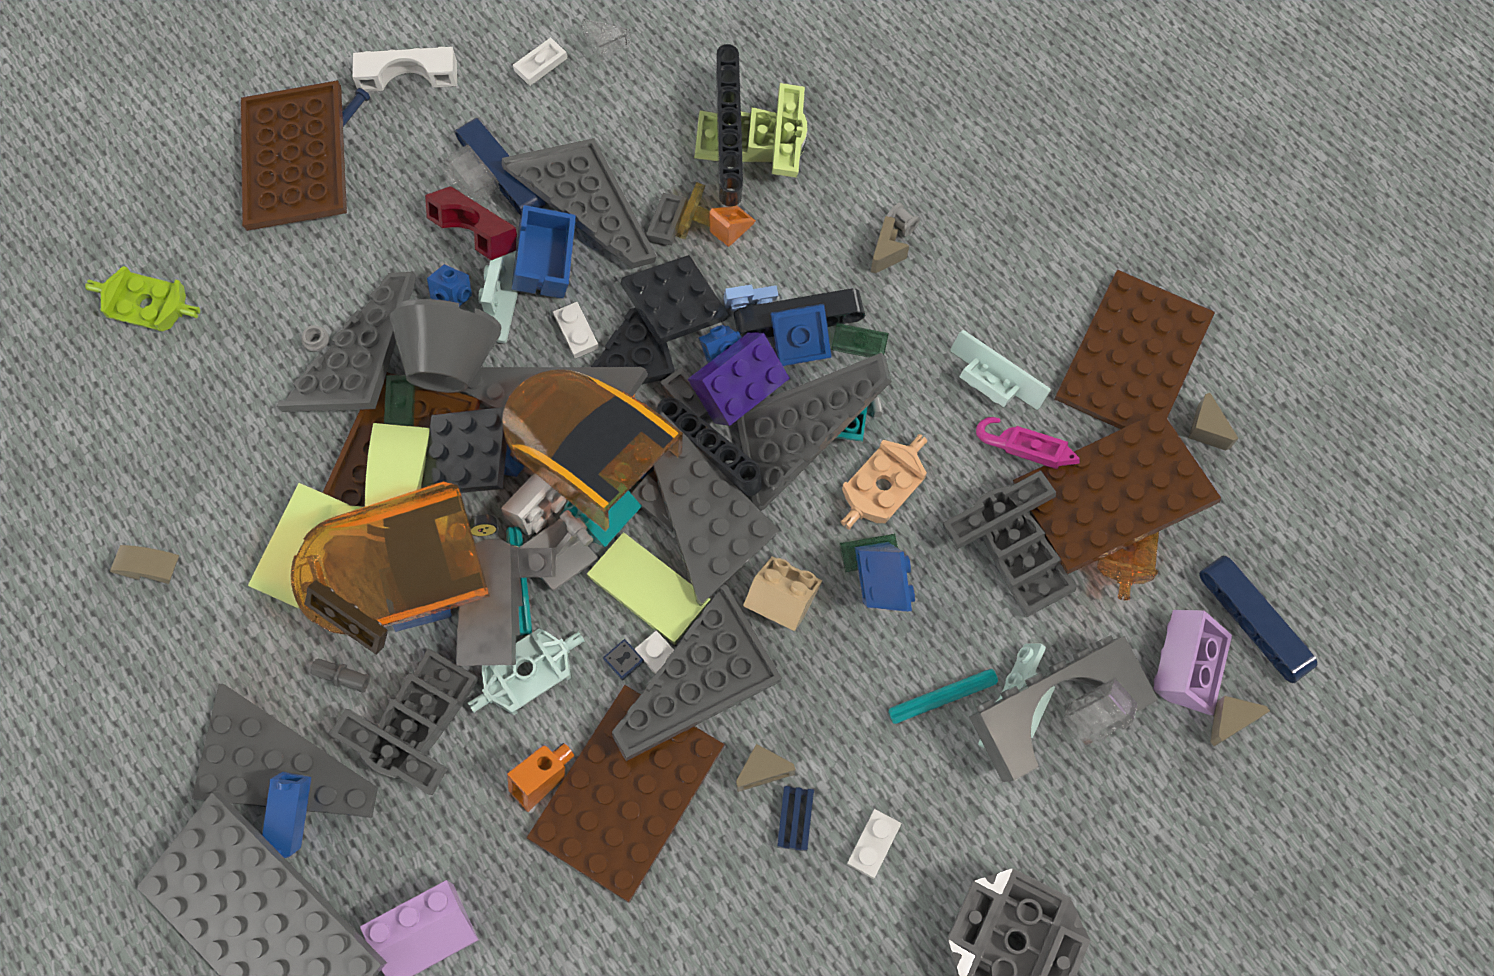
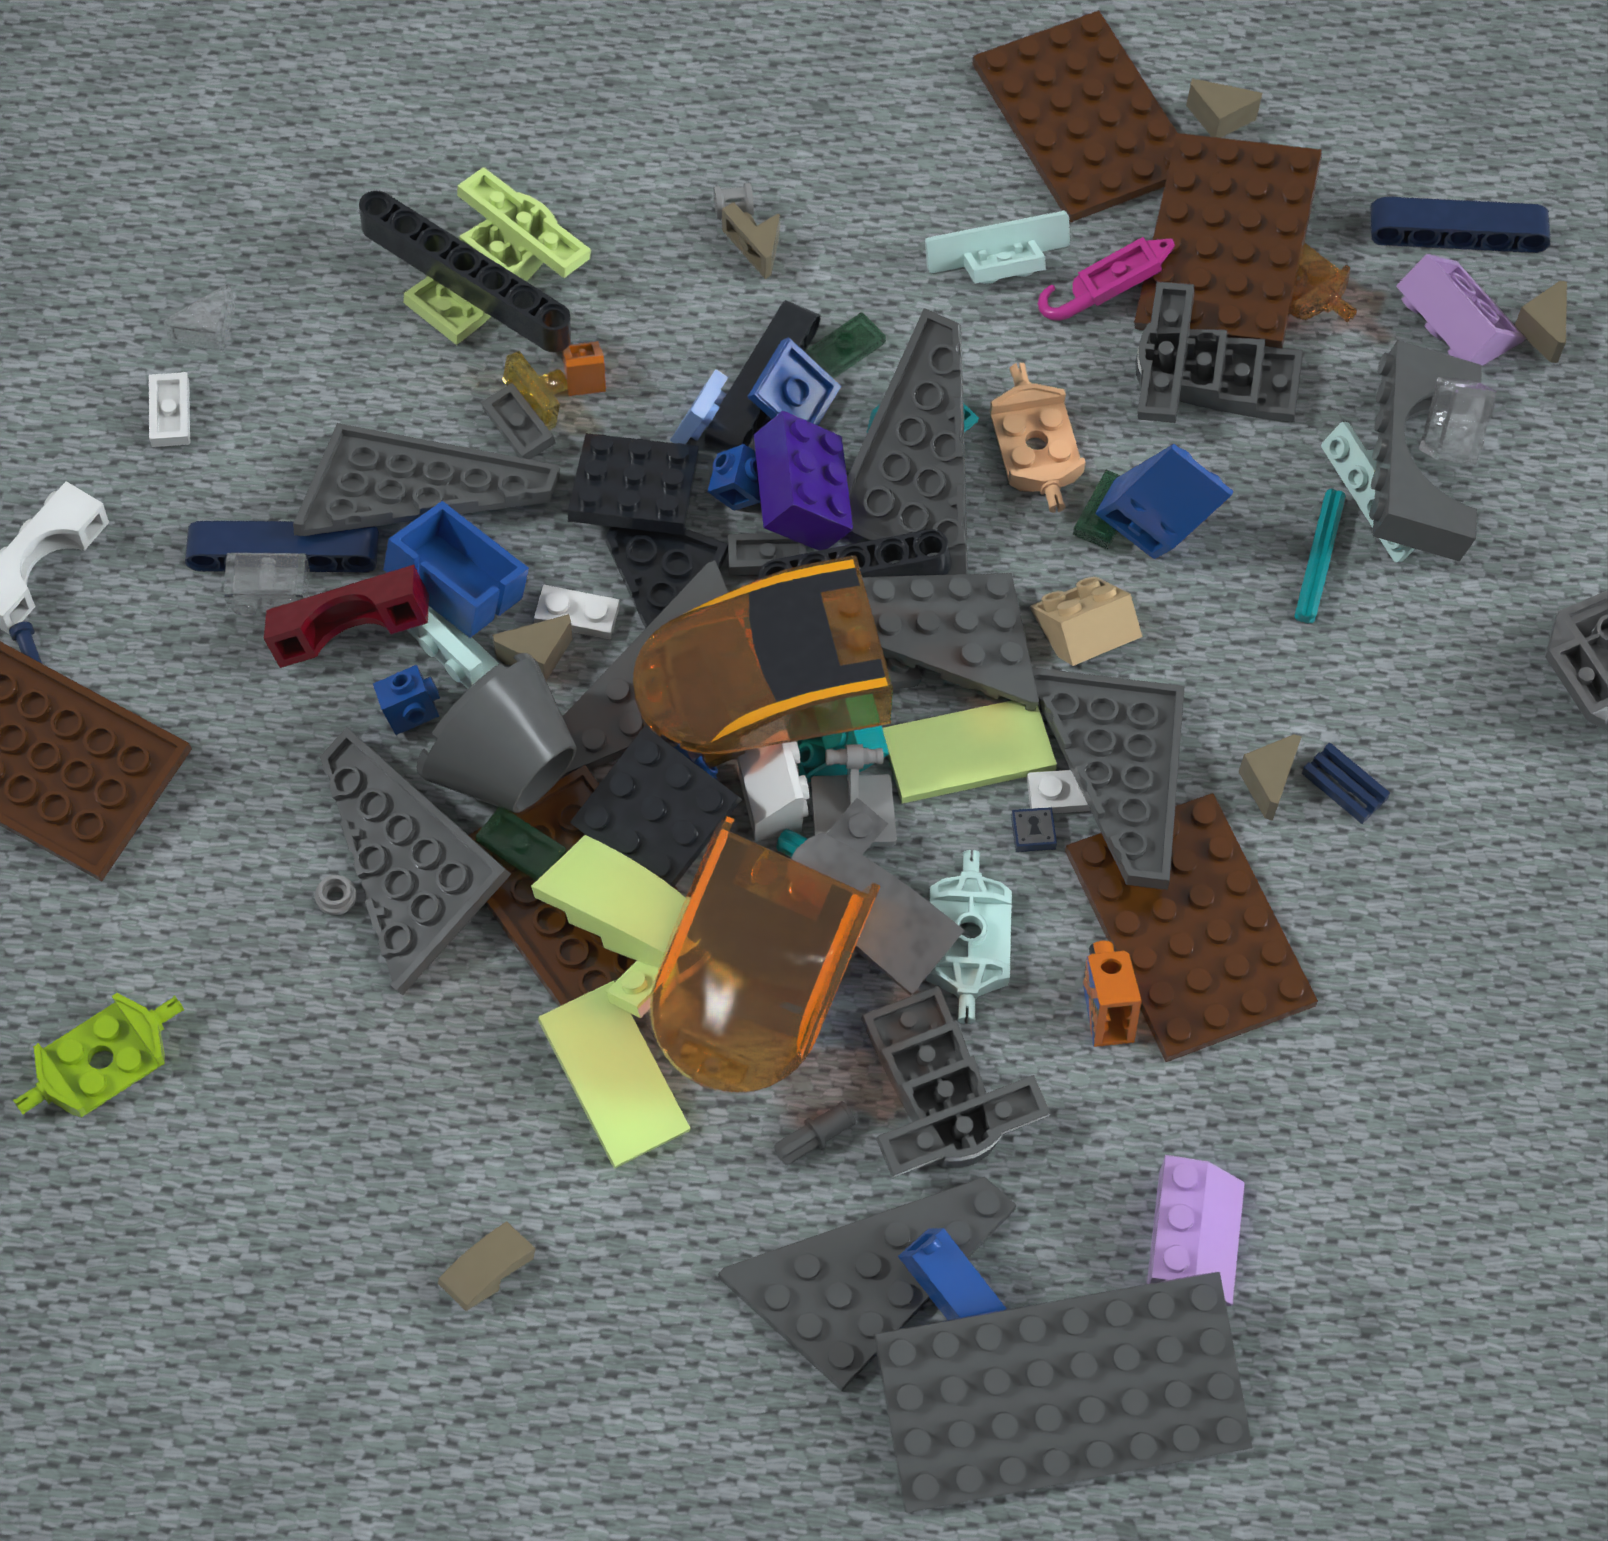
camera: 55 degrees left, 5 degrees down
(346, 617) = (792, 1038): dark brown plate -> none
(535, 326) = (542, 640): none -> dark tan slope
(874, 844) = (1429, 729): white plate -> none

